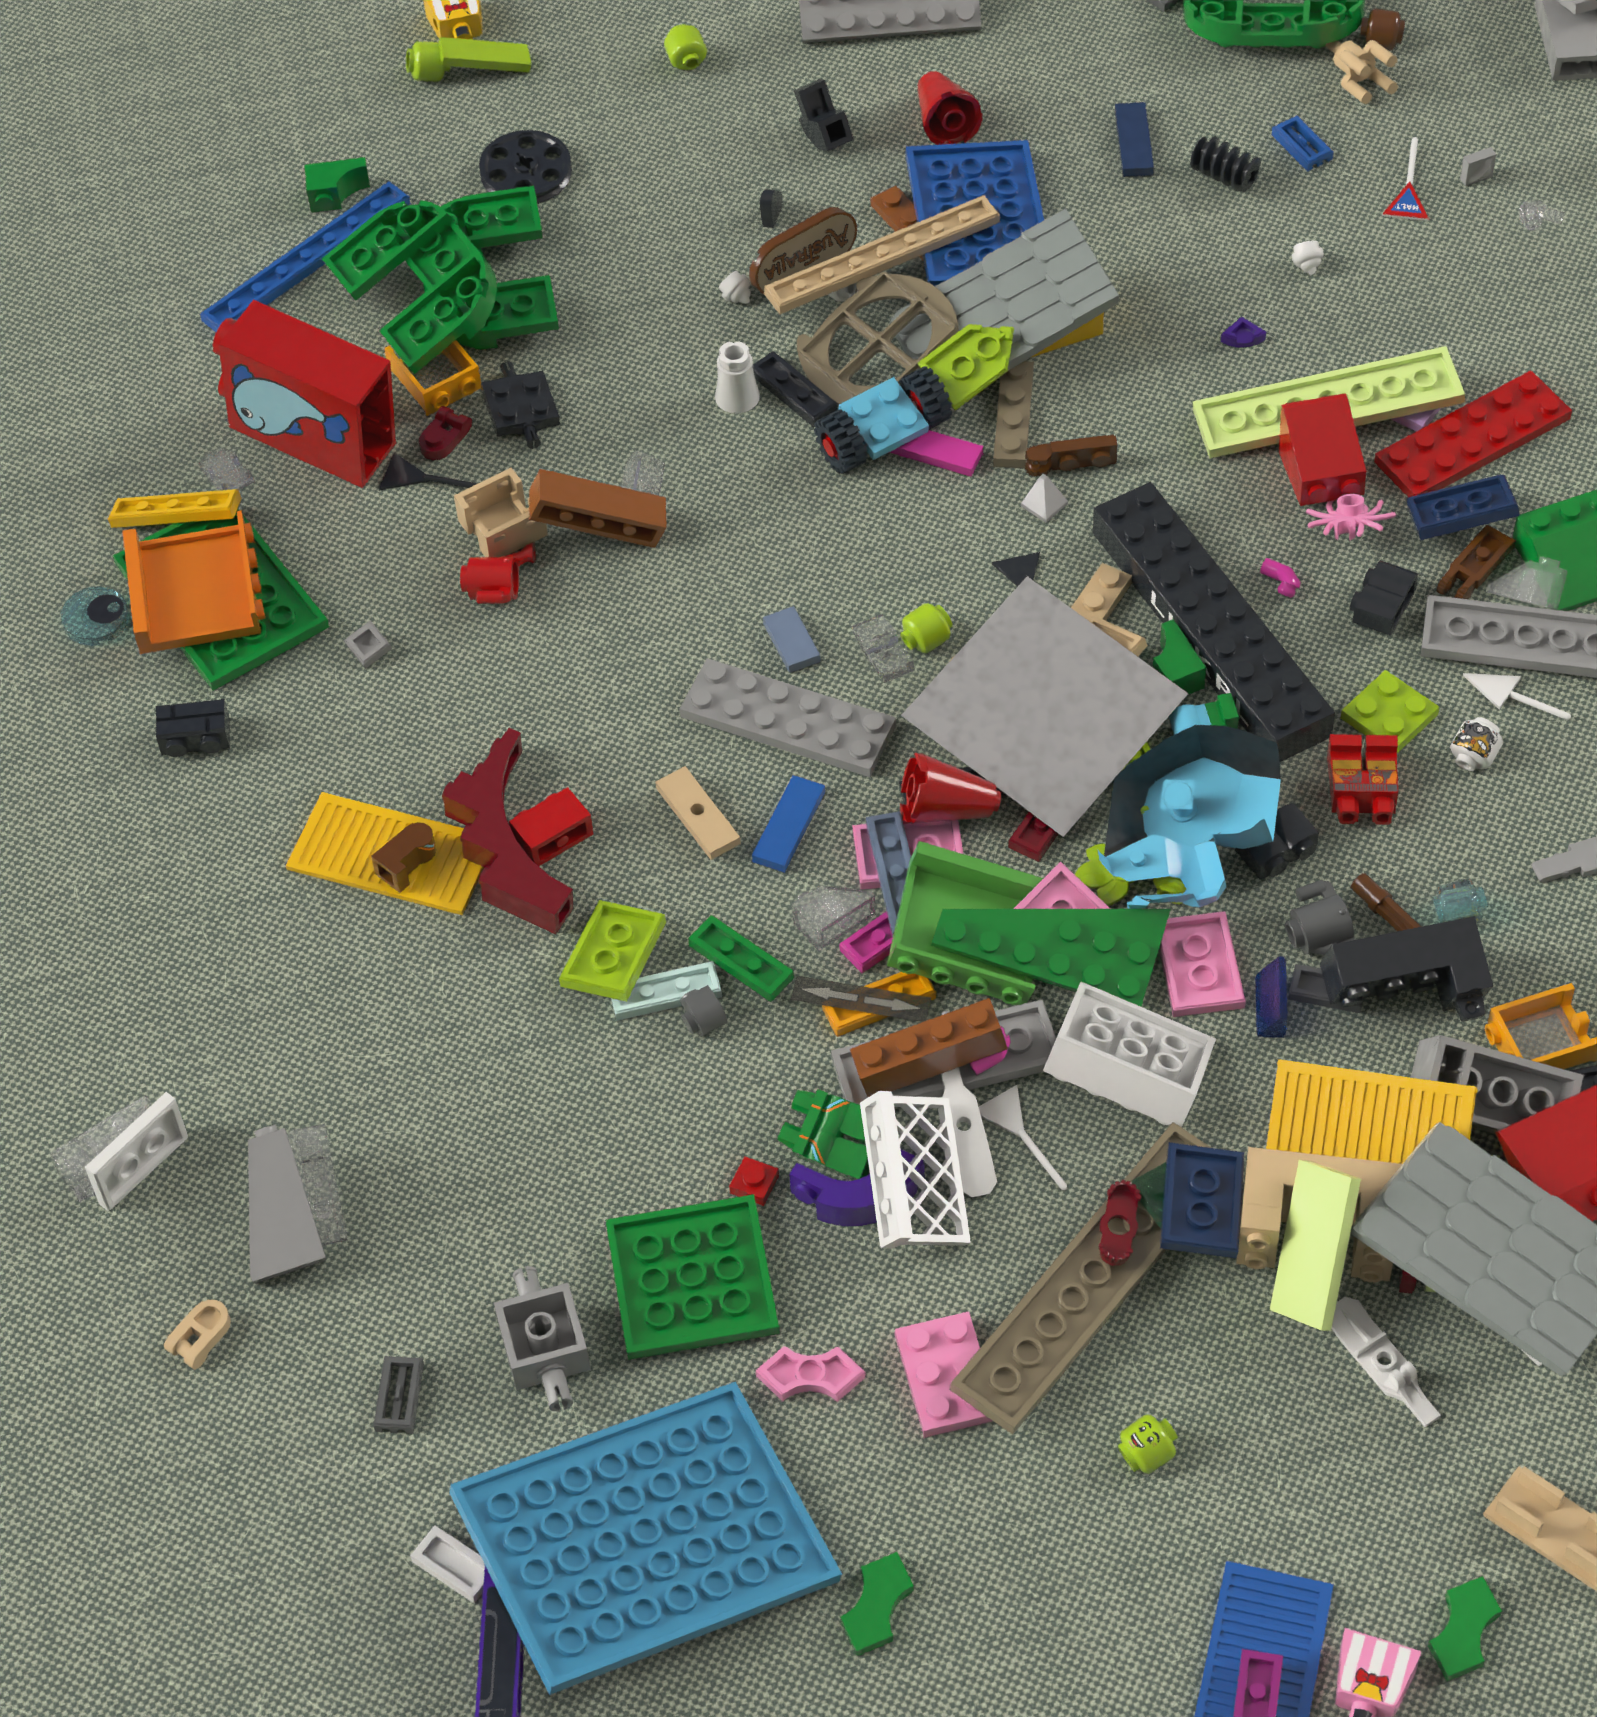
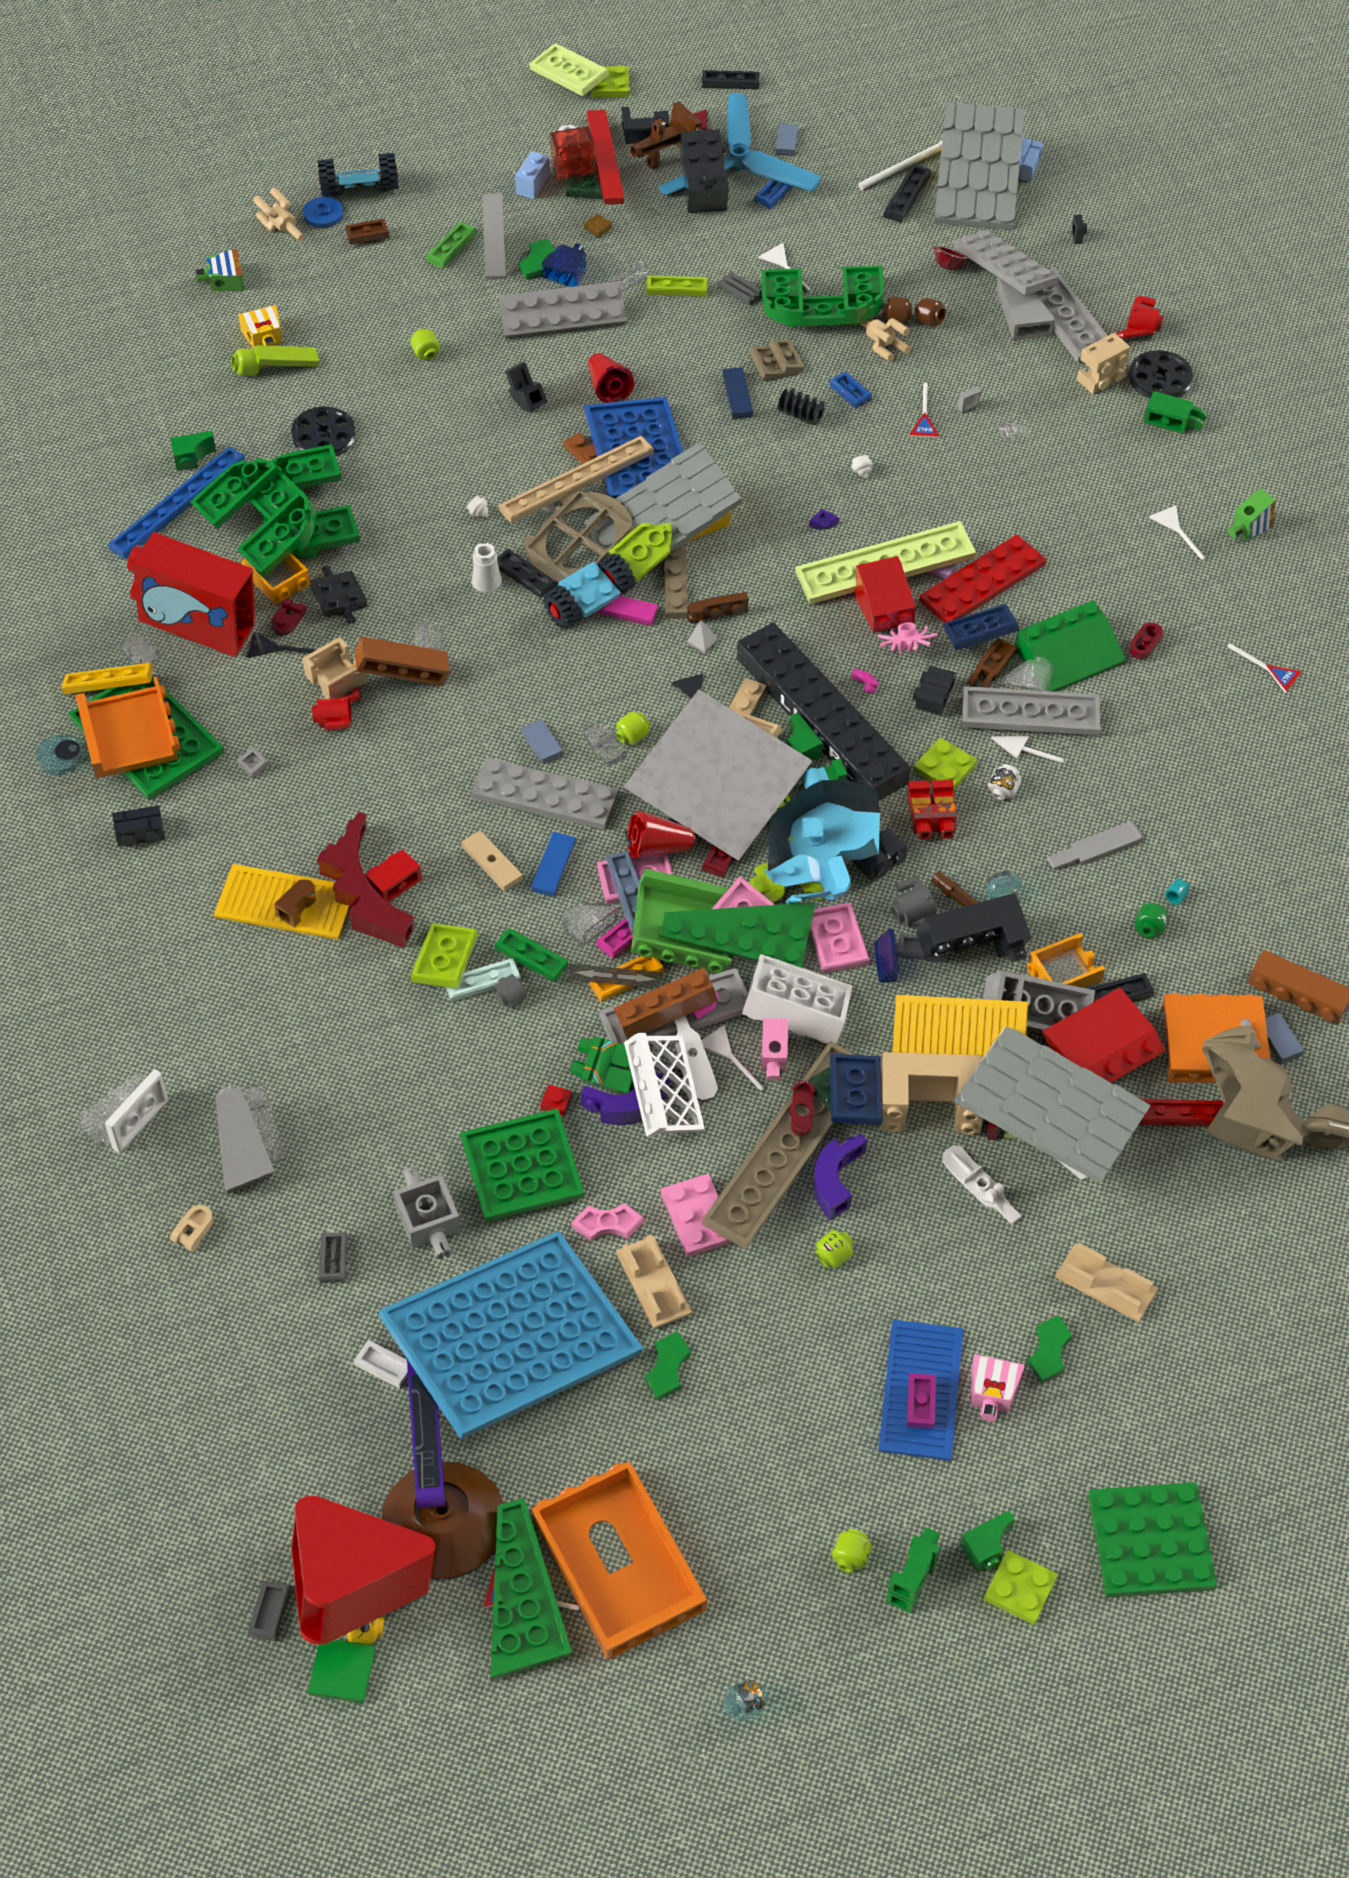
camera: 10 degrees left, 0 degrees up
(770, 206) = (495, 451): black tile -> none
(803, 246) = (522, 476): tile -> none
(869, 1472) = (653, 1282): none -> tan brick
(1087, 1126) = (774, 1047): none -> bright pink torso
(1148, 1353) = (828, 1189): none -> dark purple arch
(1196, 94) = (776, 360): none -> dark tan slope
(1315, 1244) = (932, 1111): yellowish green tile -> none
(1431, 33) = (930, 312): none -> reddish brown head

